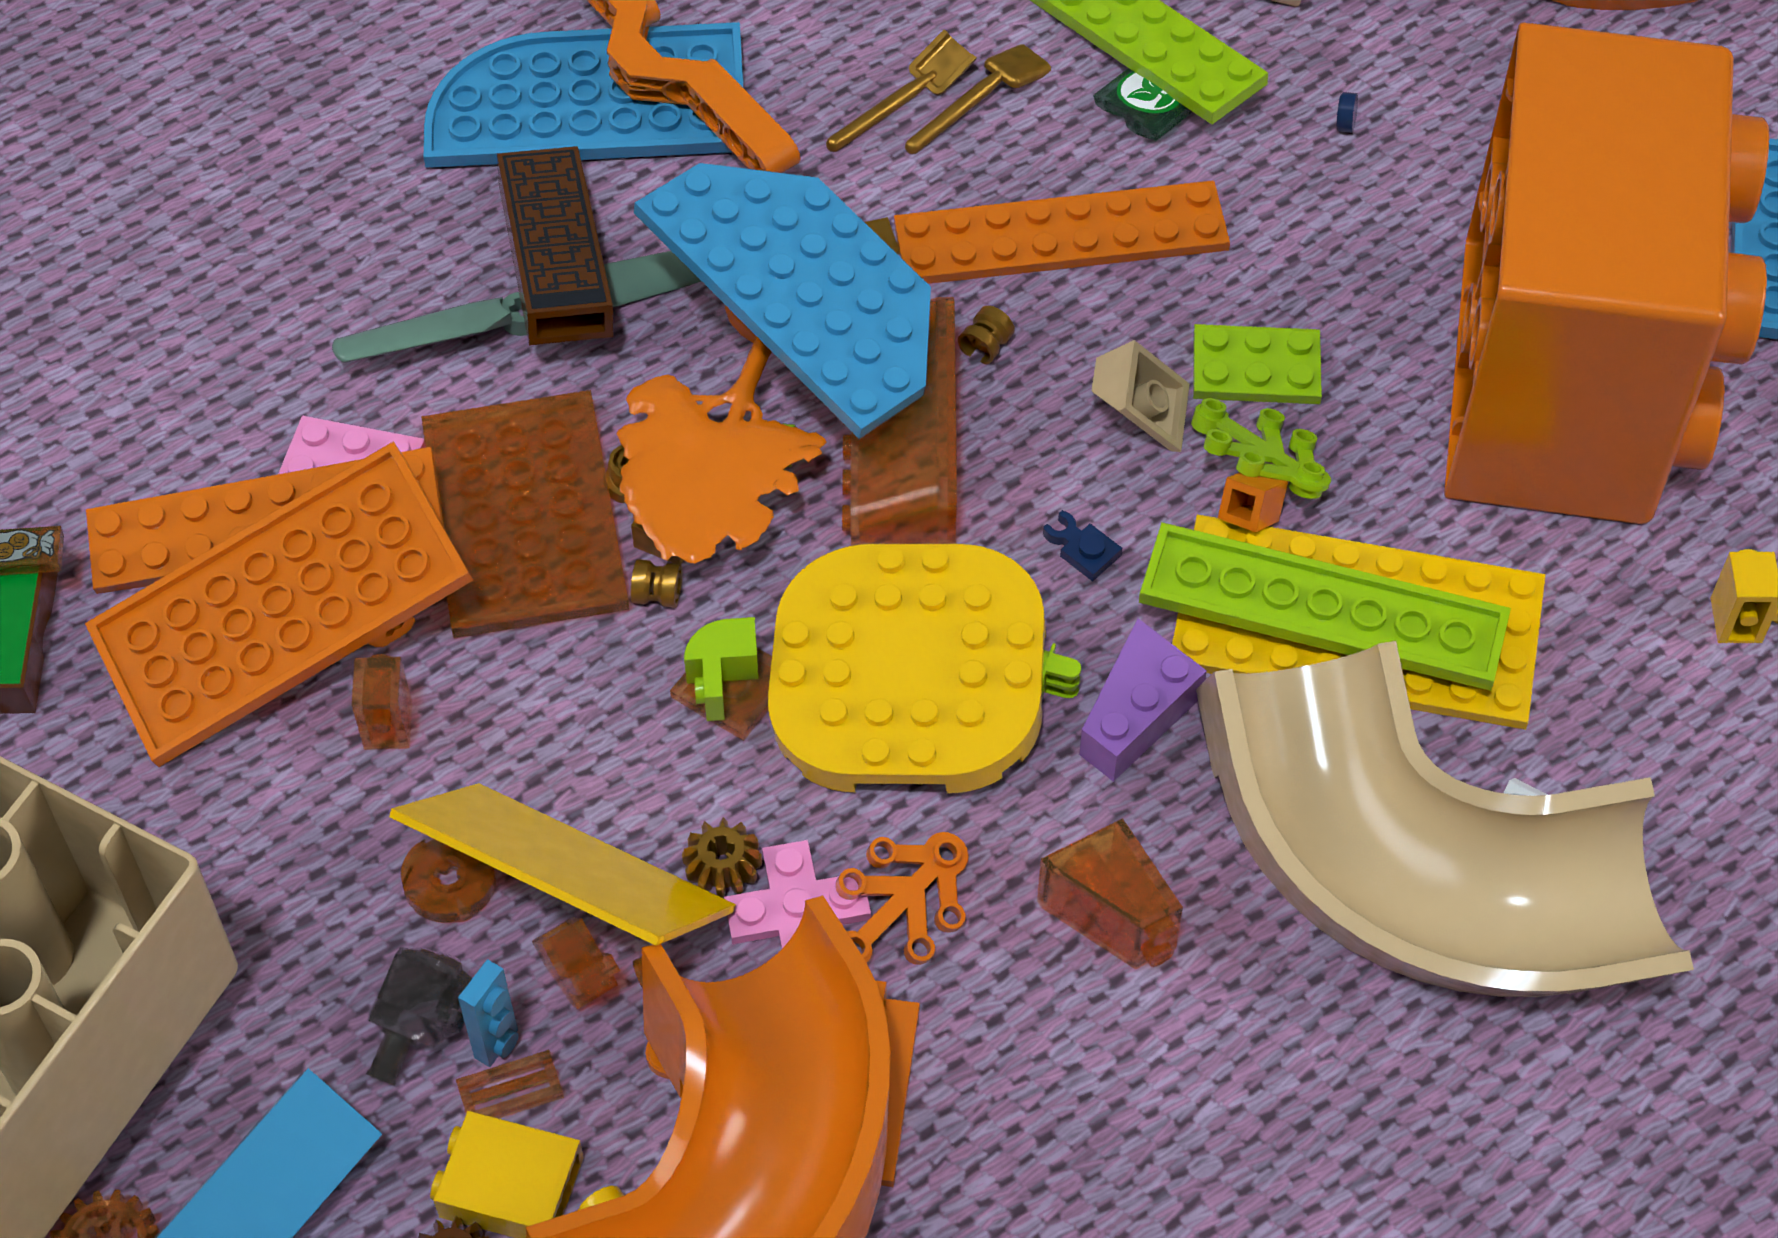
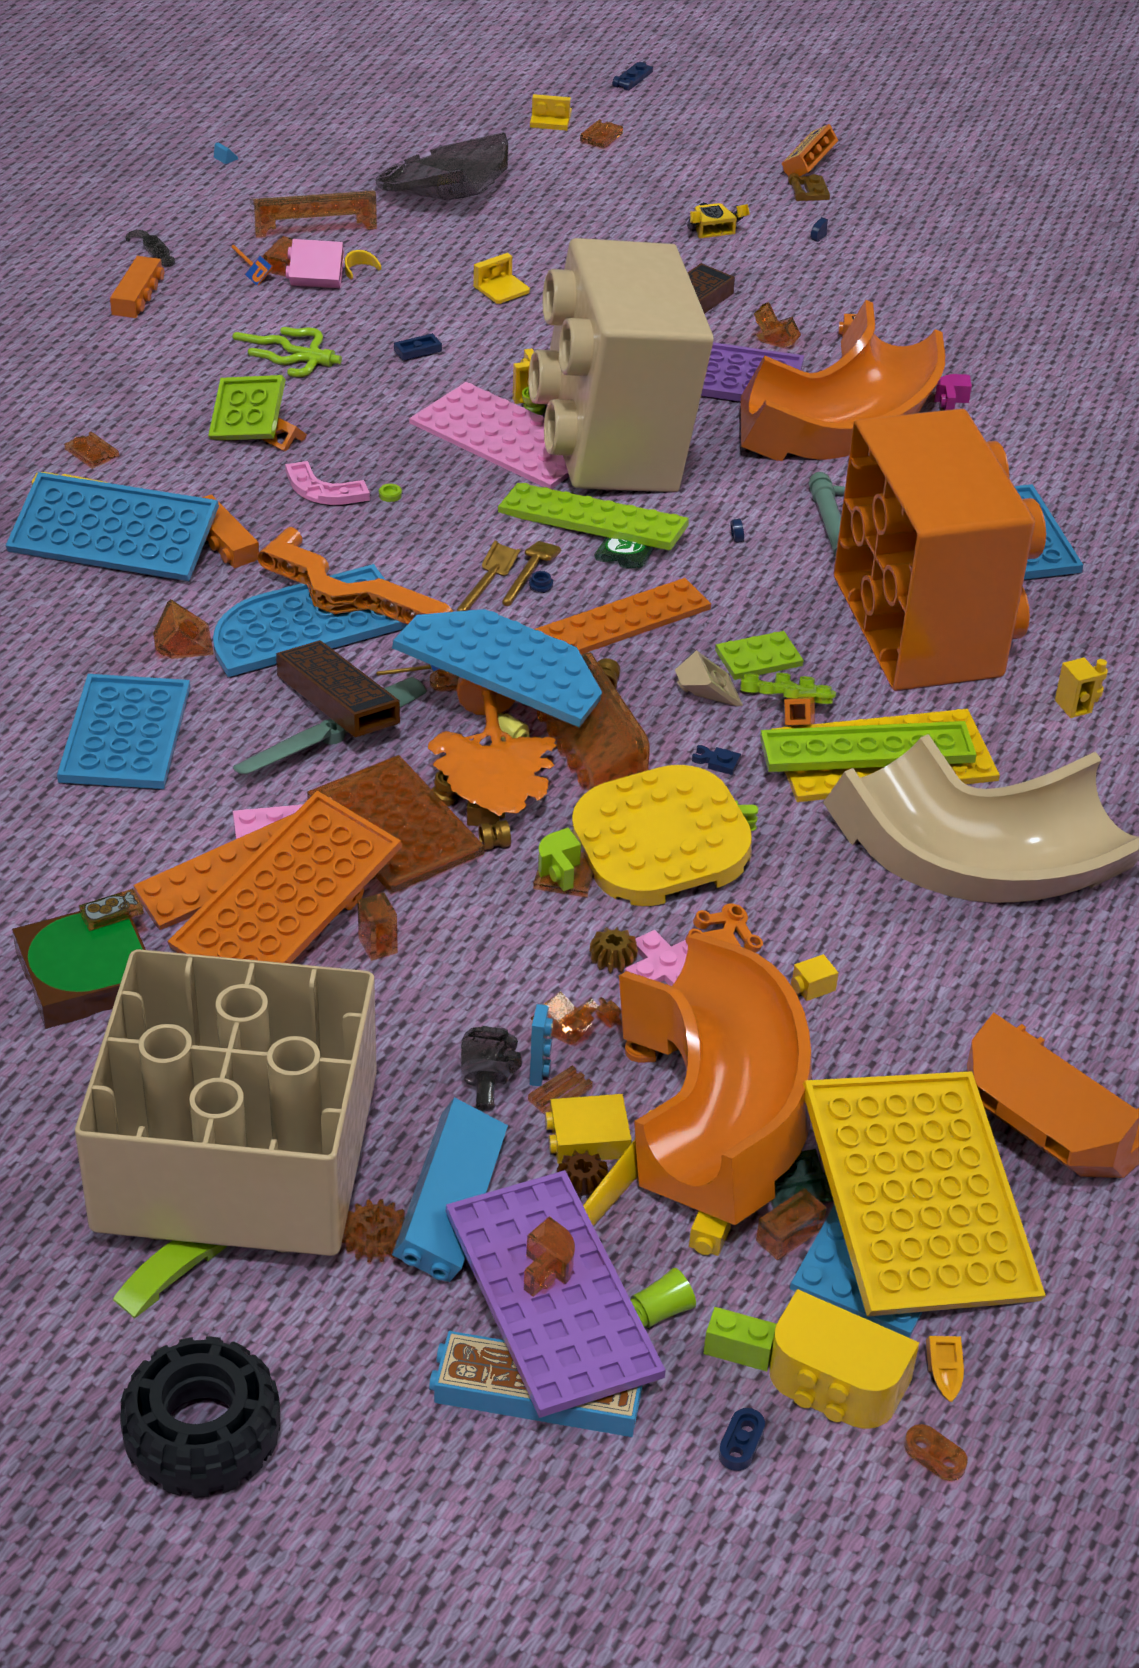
camera: 25 degrees left, 15 degrees down
(225, 224) = (124, 731): none -> dark azure plate
(394, 71) = (181, 633): none -> clear orange slope
(445, 902) = (472, 1014): clear orange plate -> none
(564, 862) = (585, 966): yellow piece -> none
(783, 393) = (512, 726): none -> light yellow brick
(983, 116) = (541, 581): none -> dark blue plate
(1004, 1019) = (814, 977): none -> yellow brick
(1112, 896) = (841, 902): clear orange slope -> none
(1139, 701) = (795, 815): medium lavender wedge -> none

